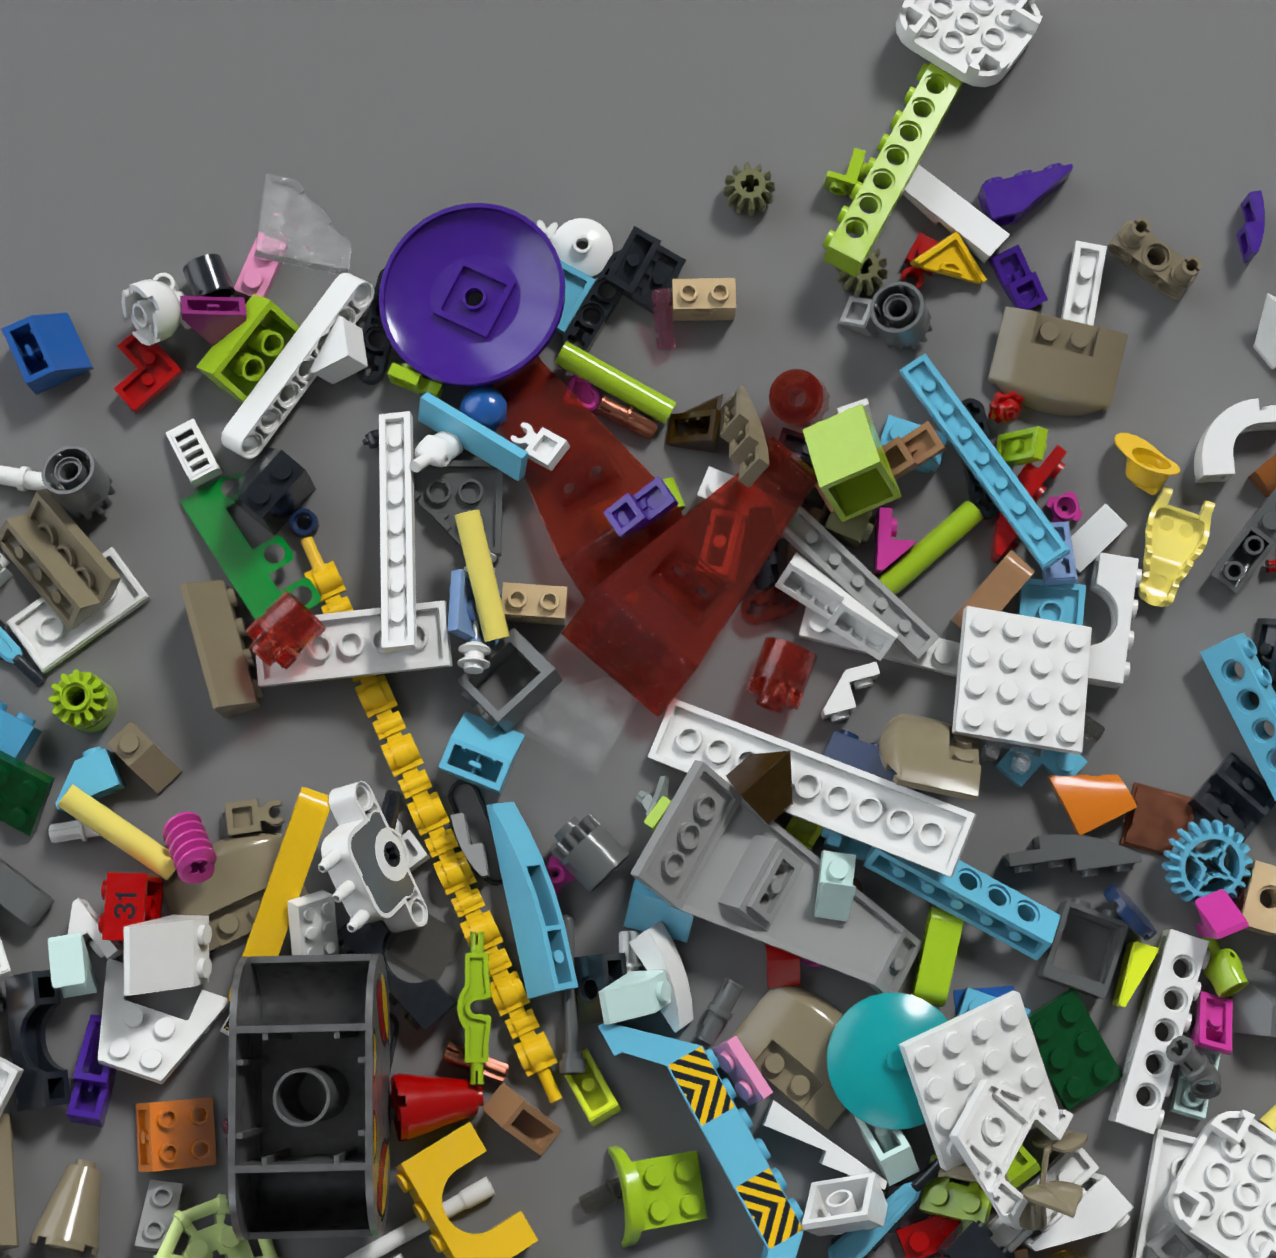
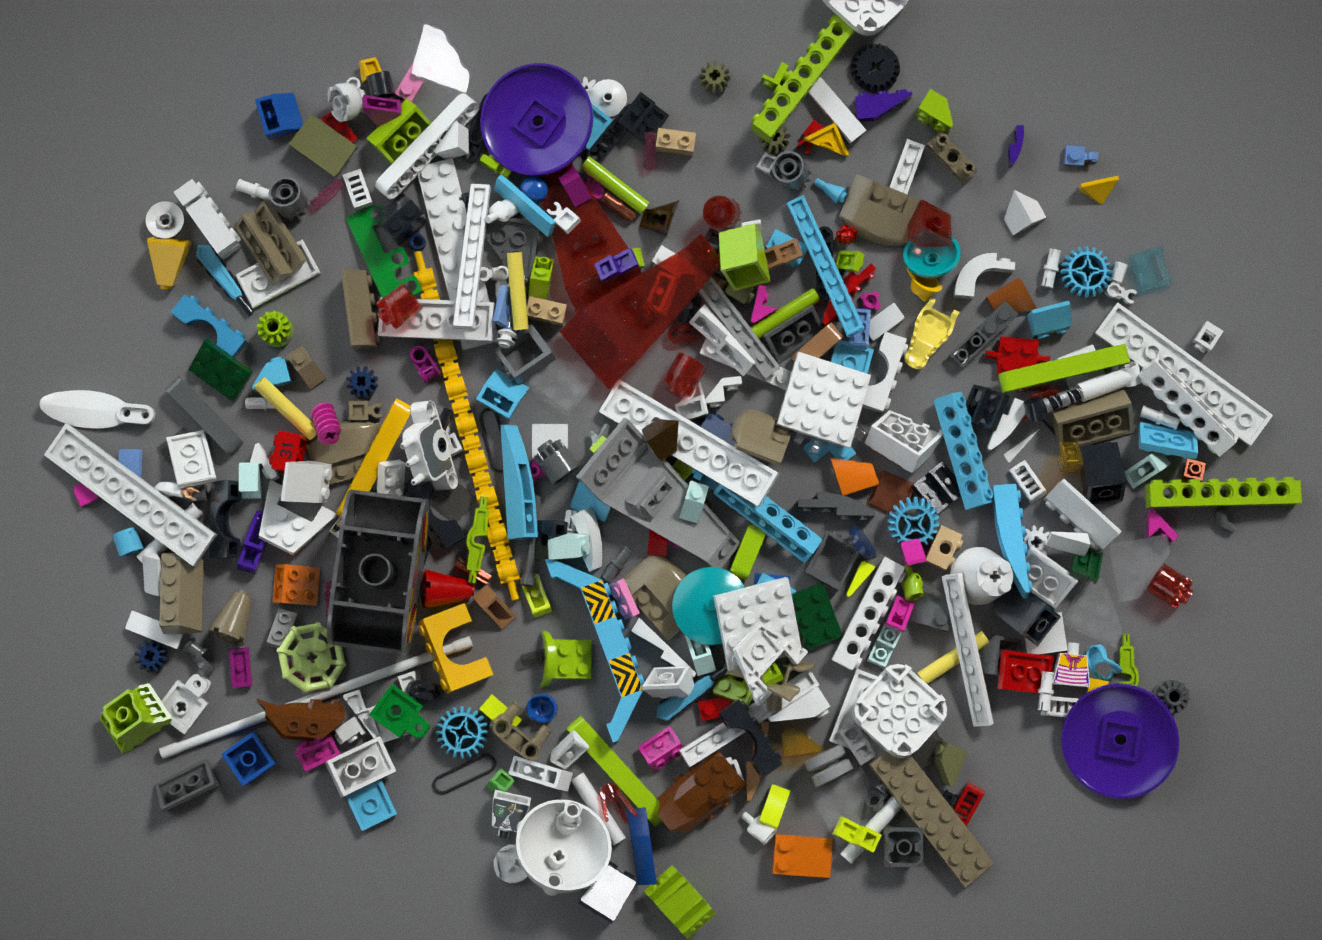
camera: 10 degrees right, 5 degrees up
(125, 388) = (323, 145): none -> olive tile
(143, 466) = (327, 193): none -> clear pink axle
(182, 253) = (368, 67): none -> yellow slope
(231, 772) = (355, 382): none -> dark blue gear
(345, 723) = (425, 365): none -> magenta piece
(351, 488) = (448, 224): none -> white plate
(442, 555) = (497, 273): none -> white bar
(474, 853) = (490, 451): light grey slope -> none
(517, 550) = (541, 277): none -> lime slope
(550, 394) = (574, 187): none -> magenta slope
(562, 806) = (543, 432): none -> white sticker
(746, 436) = (685, 228): dark tan slope -> none
(805, 725) = (694, 406): none -> white slope
(949, 579) = (793, 334): none -> dark grey slope
(976, 343) = (836, 193): none -> medium azure cone
(1008, 158) = (876, 80): none -> black gear
(1017, 279) = (868, 157): dark purple slope -> none
(1116, 190) = (935, 112): none -> lime slope
(1140, 373) = (930, 226): none -> clear red slope
(1153, 416) = (931, 261): none -> teal dish
(1162, 728) = (903, 440): none -> white wedge
(1201, 1067) = (882, 636): dark grey connector -> none

